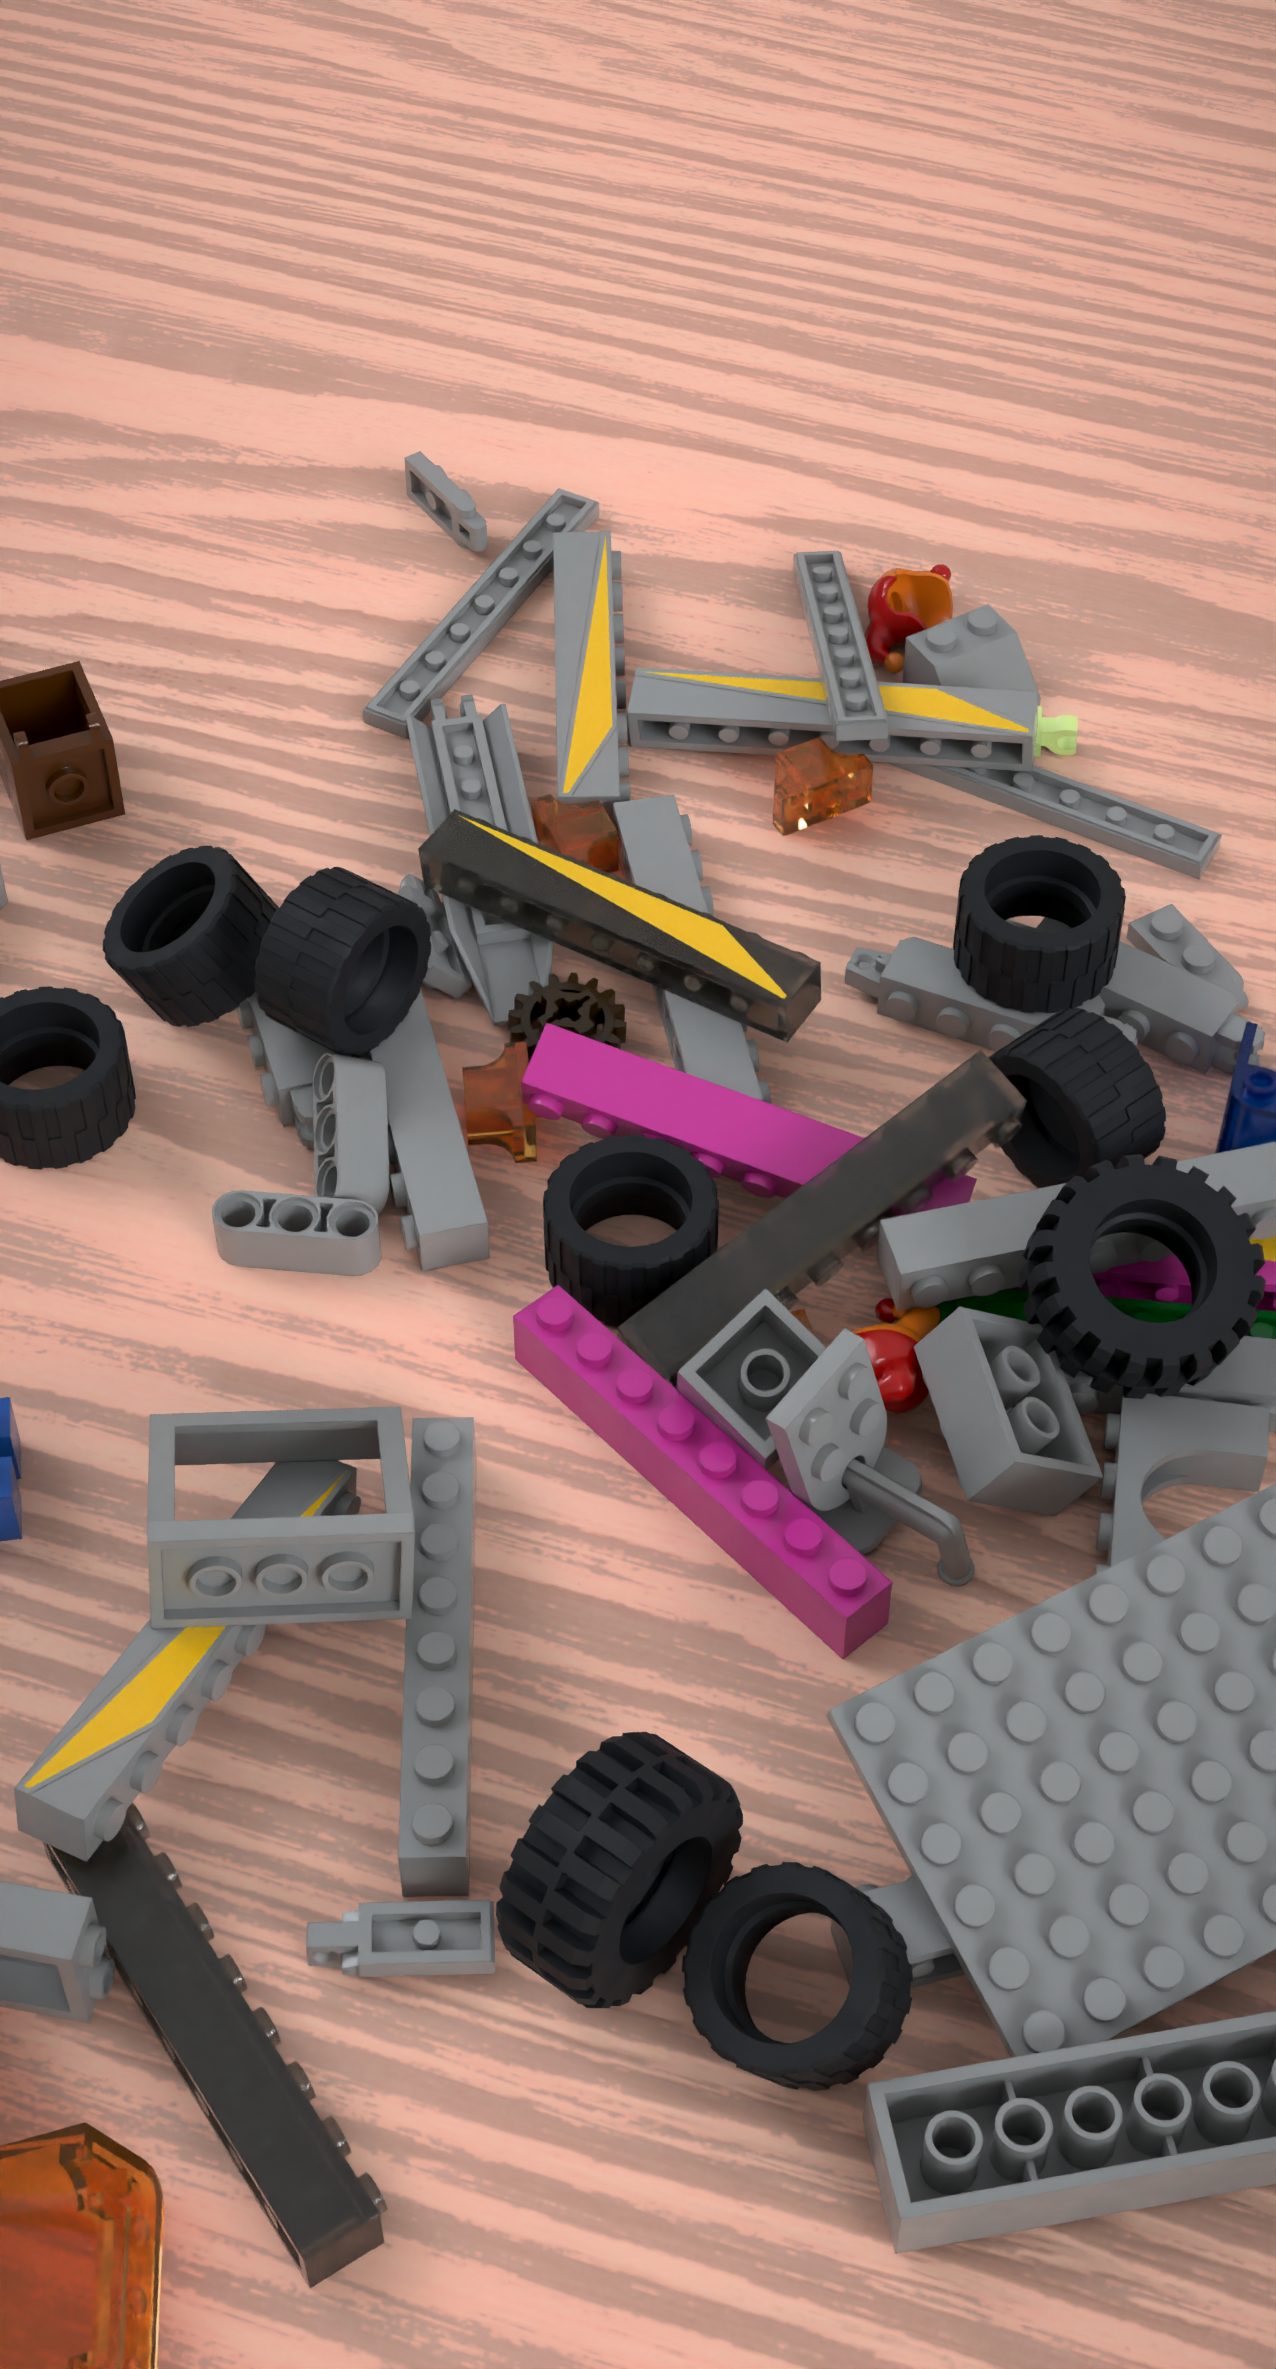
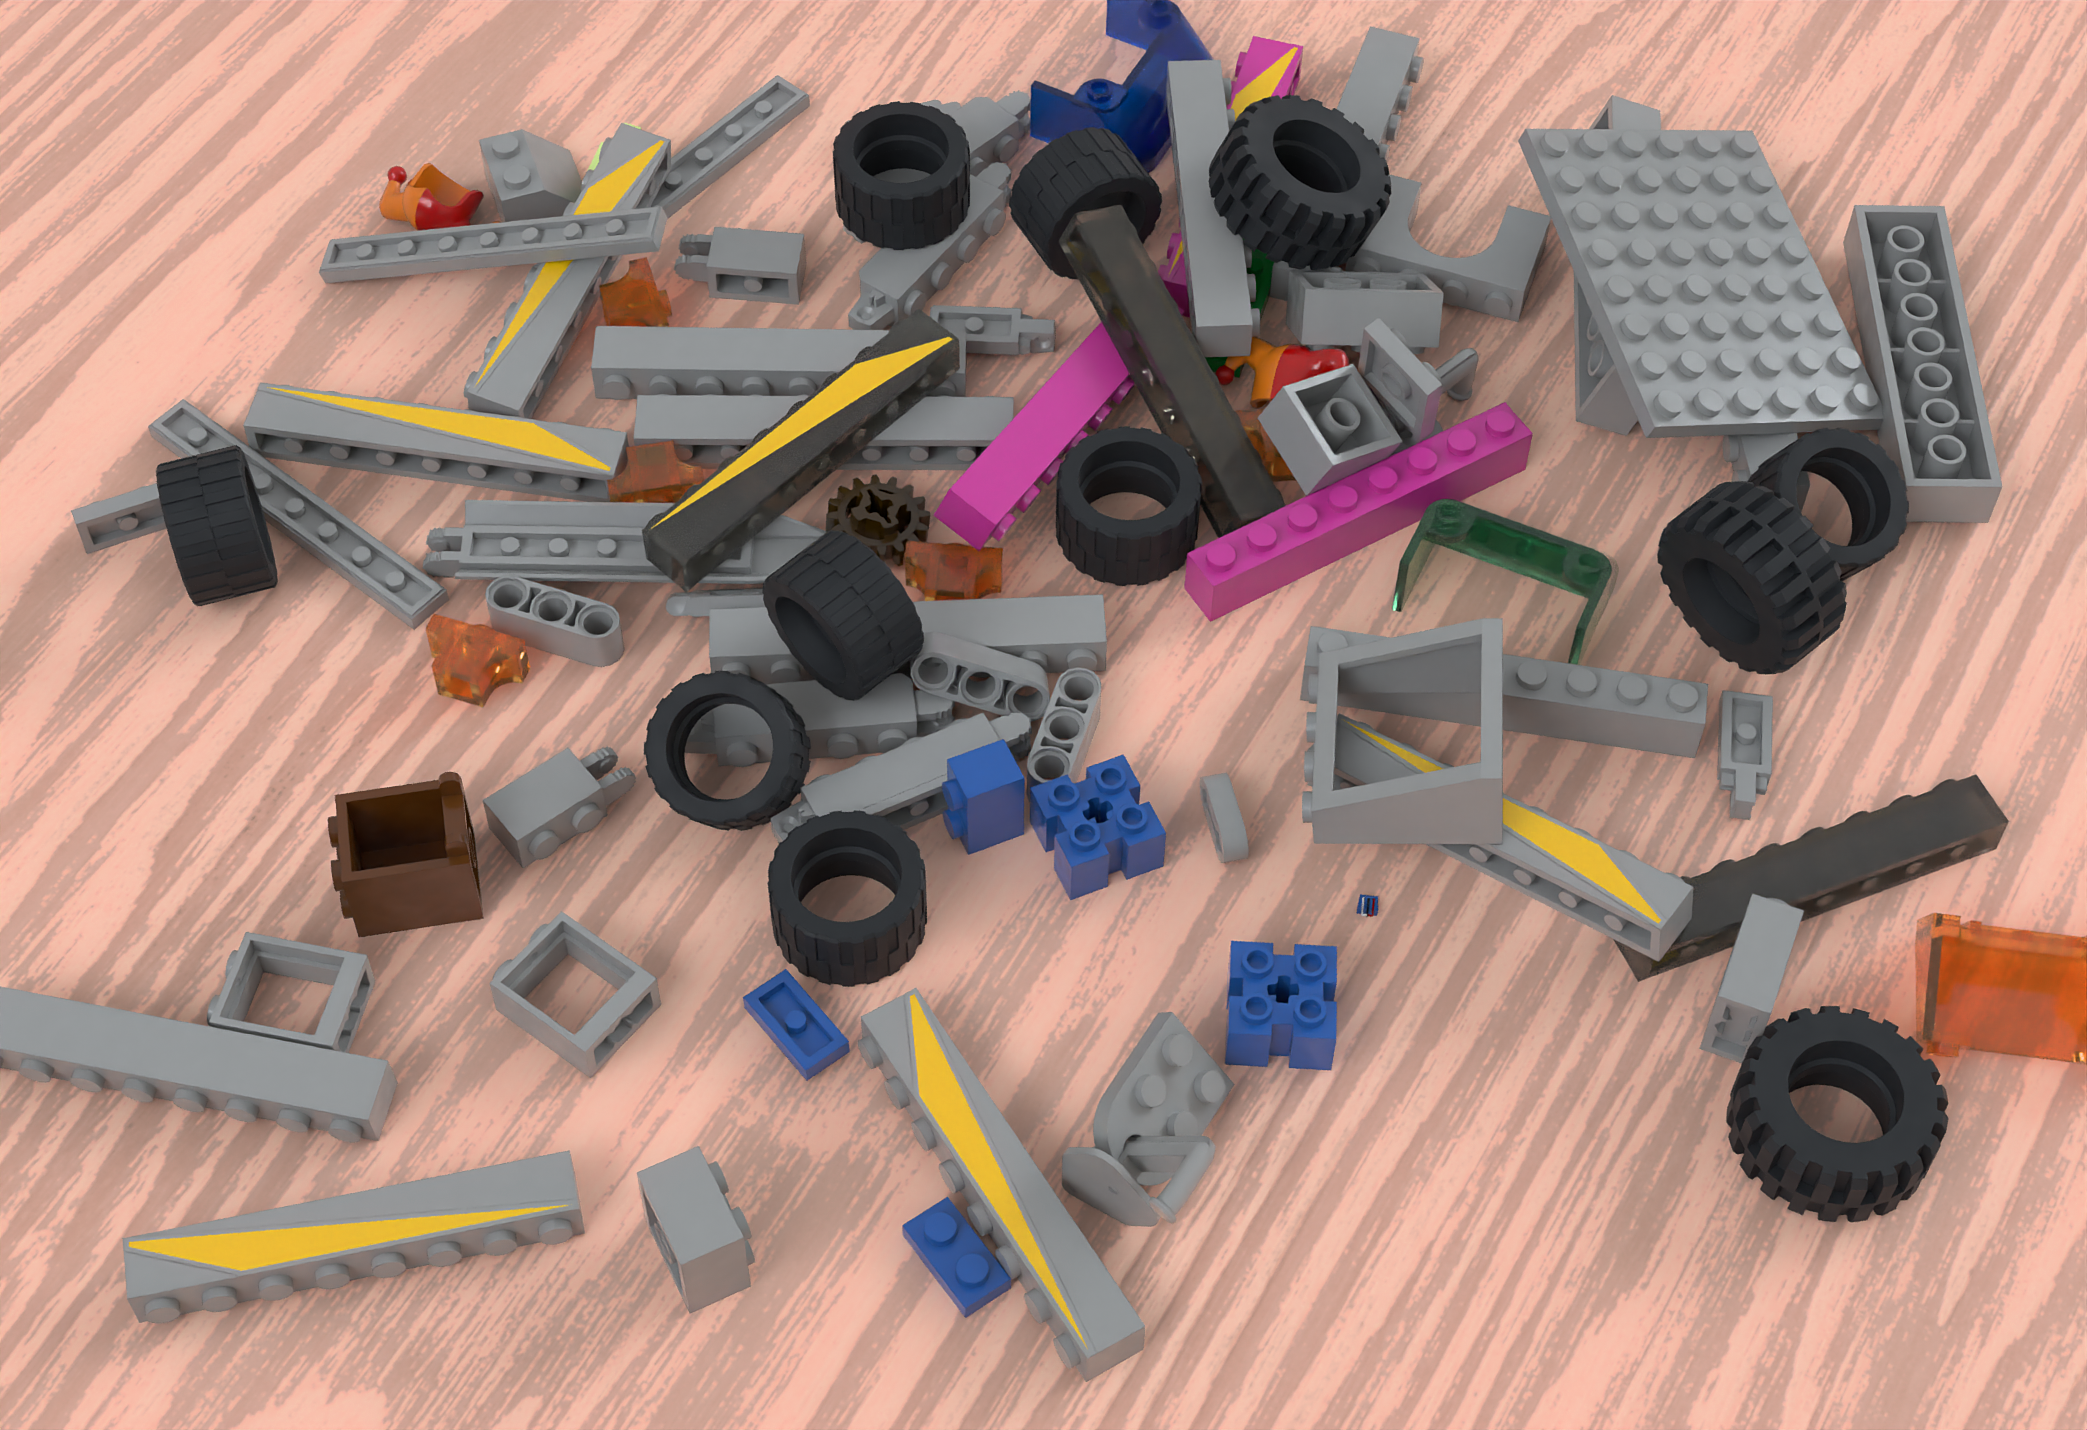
camera: 80 degrees left, 5 degrees up
(123, 1559) = (1368, 905): none -> blue piece
(134, 834) = (555, 803): none -> light grey hinge
(176, 1276) = (1097, 827): none -> blue brick
(183, 1160) = (984, 797): none -> blue brick
(212, 1106) = (905, 780): none -> light grey hinge
(221, 1387) = (1224, 817): none -> light grey beam
(315, 756) = (473, 659): none -> clear orange brick
(375, 501) = (216, 525): none -> black tyre
(375, 805) = (556, 620): none -> light grey beam
(685, 1650) = (1517, 549): none -> clear green windscreen
(770, 900) = (732, 360): none -> light grey brick
(881, 1069) = (997, 329): none -> light grey hinge
(914, 862) = (745, 264): none -> light grey hinge

